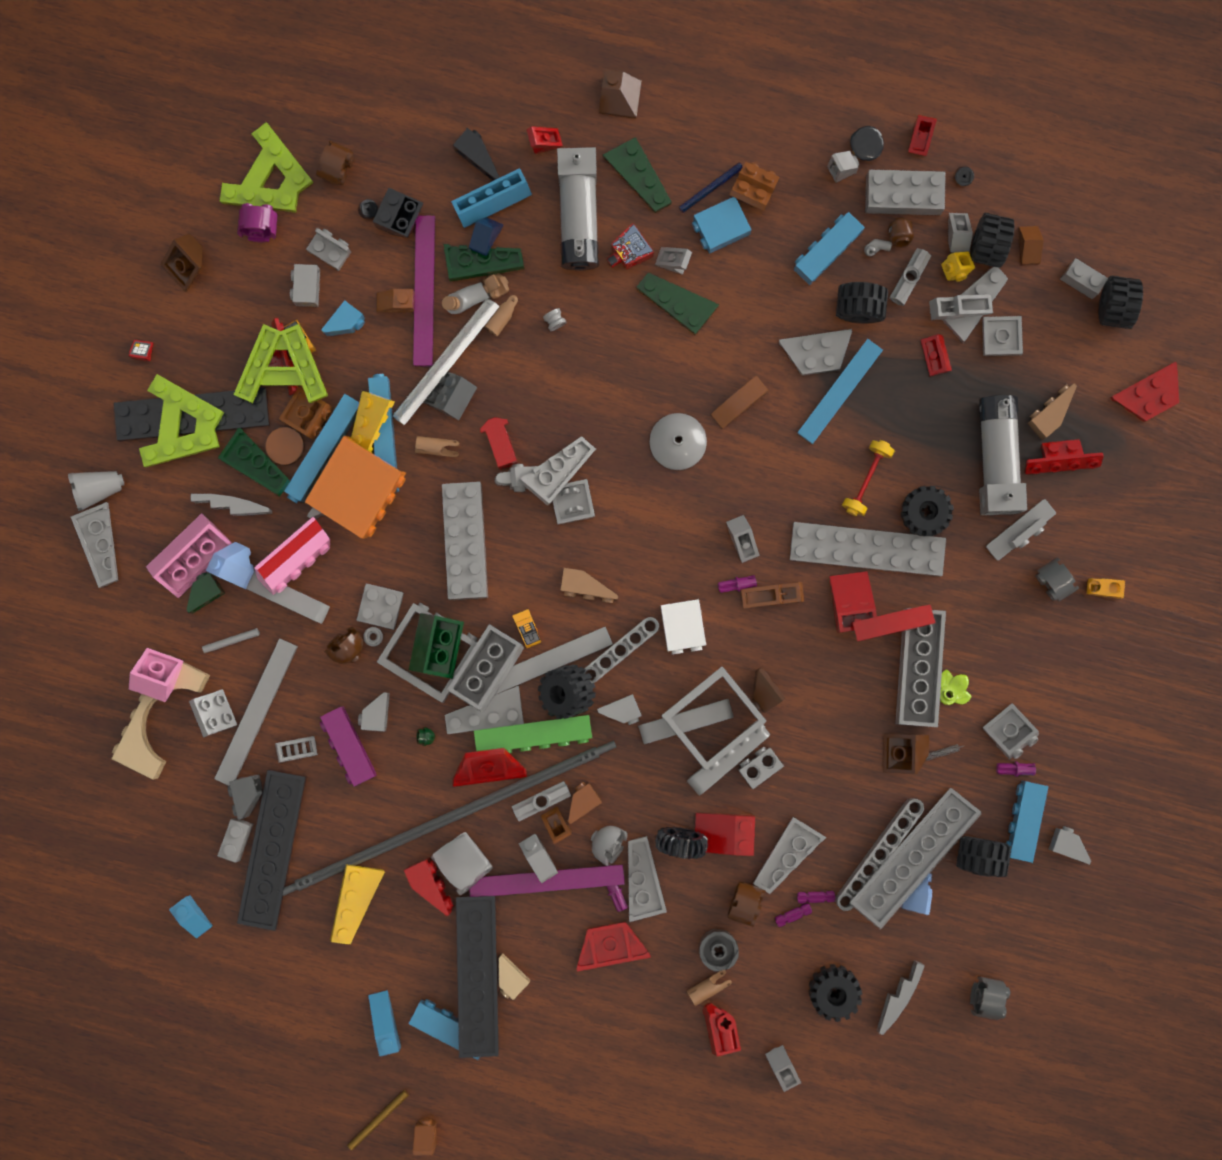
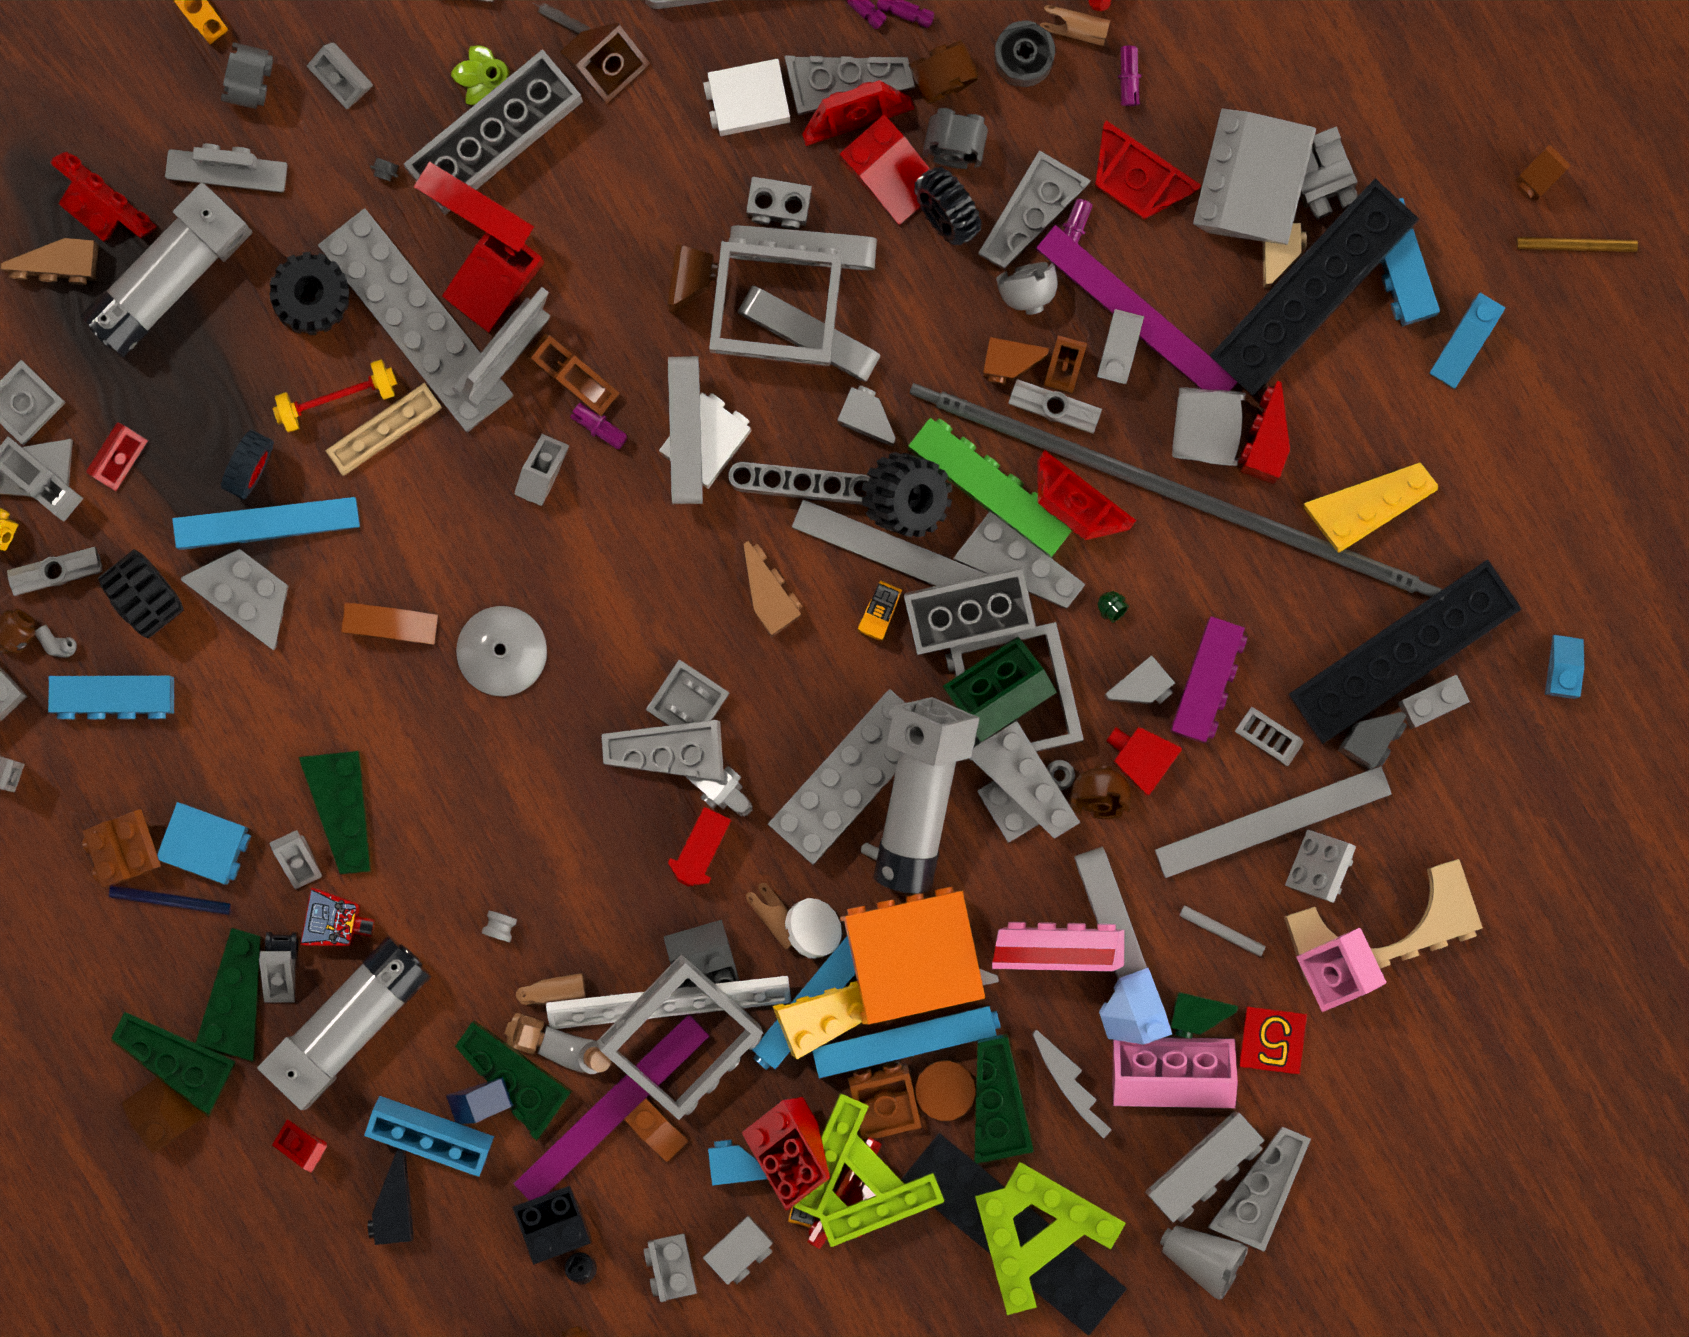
camera: 135 degrees left, 0 degrees up
(132, 526) = (1204, 1167): none -> light grey brick
(160, 614) = (1272, 1040): none -> red tile
(323, 347) = (789, 1150): none -> red slope
(342, 682) = (1143, 757): none -> red torso
(387, 618) = (1022, 775): none -> light grey wing
(414, 457) = (813, 928): none -> white tile
(441, 588) = (929, 742): none -> light grey piece
(451, 349) = (648, 1004): none -> light grey window
(529, 1034) = (1329, 177): none -> light grey hips
(555, 1000) = (1254, 177): none -> light grey slope
(629, 122) = (179, 1063): none -> dark green wing
(629, 201) = (277, 976): none -> light grey slope
(641, 216) = (283, 943): none -> black bush
(660, 988) = (1129, 76): none -> magenta axle
(695, 619) = (685, 430): none -> light grey beam
(709, 877) = (955, 139): none -> dark grey brick
(769, 845) = (854, 110): none -> red wing
(814, 573) = (503, 349): none -> light grey fence
(823, 800) = (747, 97): none -> white brick
(831, 486) = (383, 429): none -> tan tile
(875, 407) = (247, 464): none -> black wheel
(951, 602) = (384, 169): none -> dark grey plate
(1016, 624) = (339, 75): none -> light grey slope

